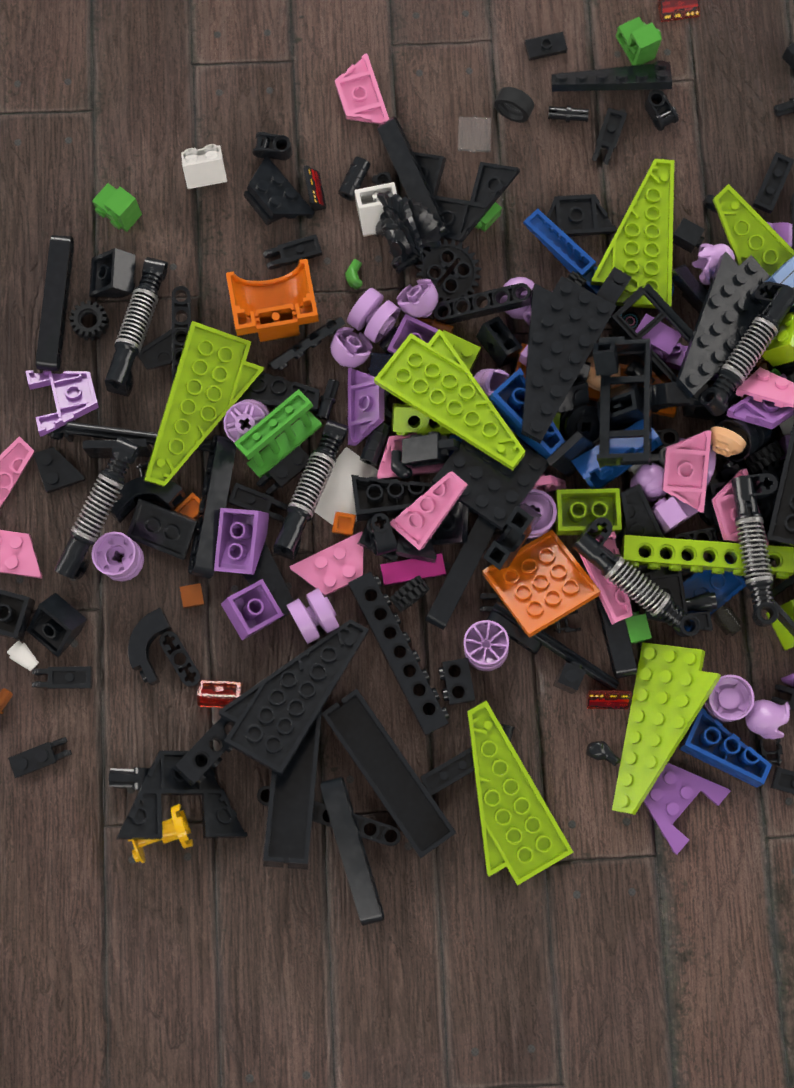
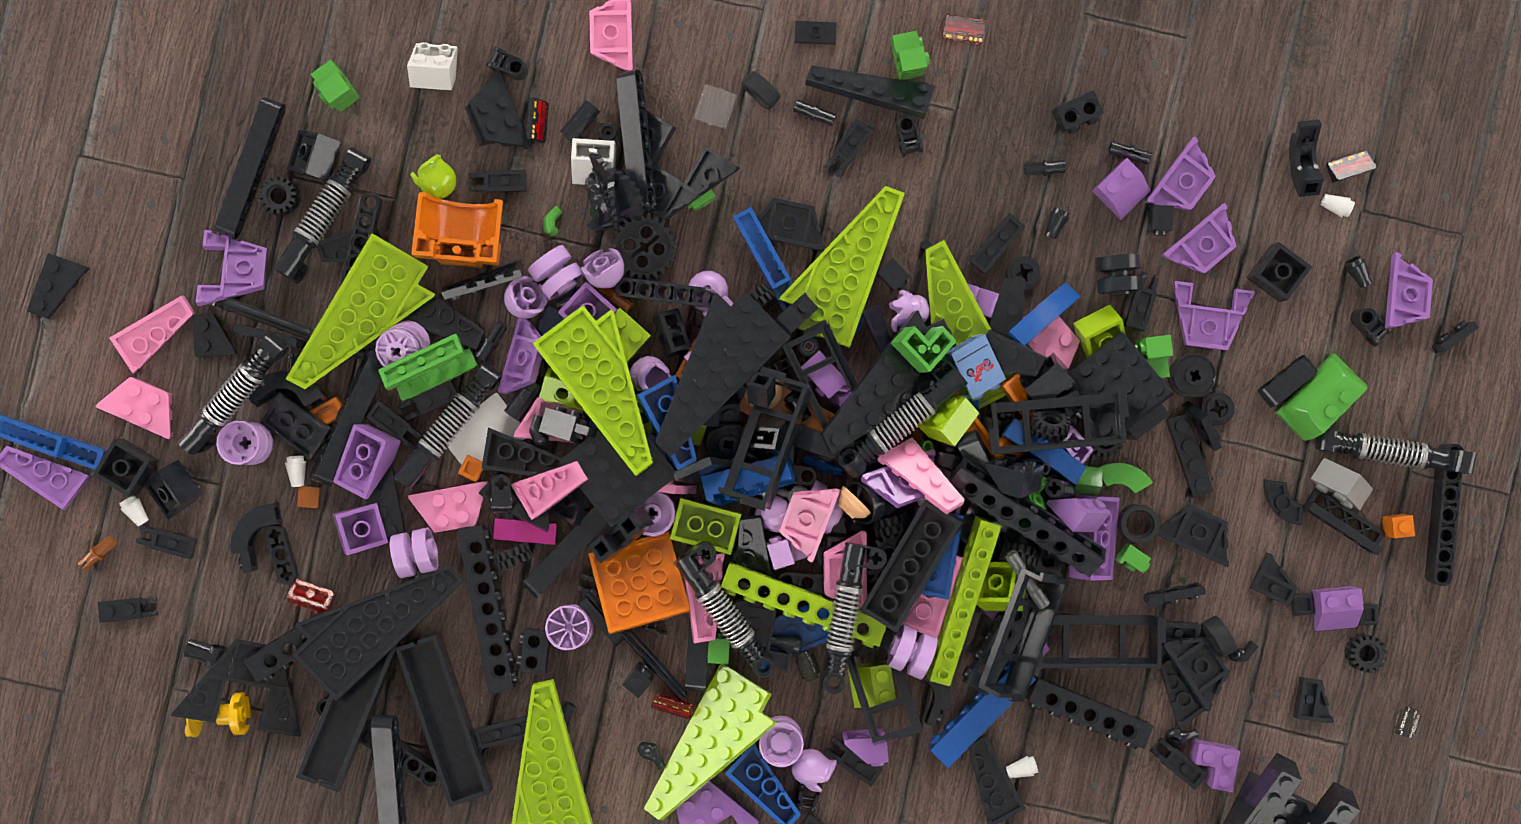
camera: 20 degrees right, 10 degrees up
(173, 571) = (296, 470): none -> white cone
(236, 259) = (435, 178): none -> lime hair
(680, 427) = (823, 465): none -> blue axle
(744, 279) = (921, 350): none -> bright green brick

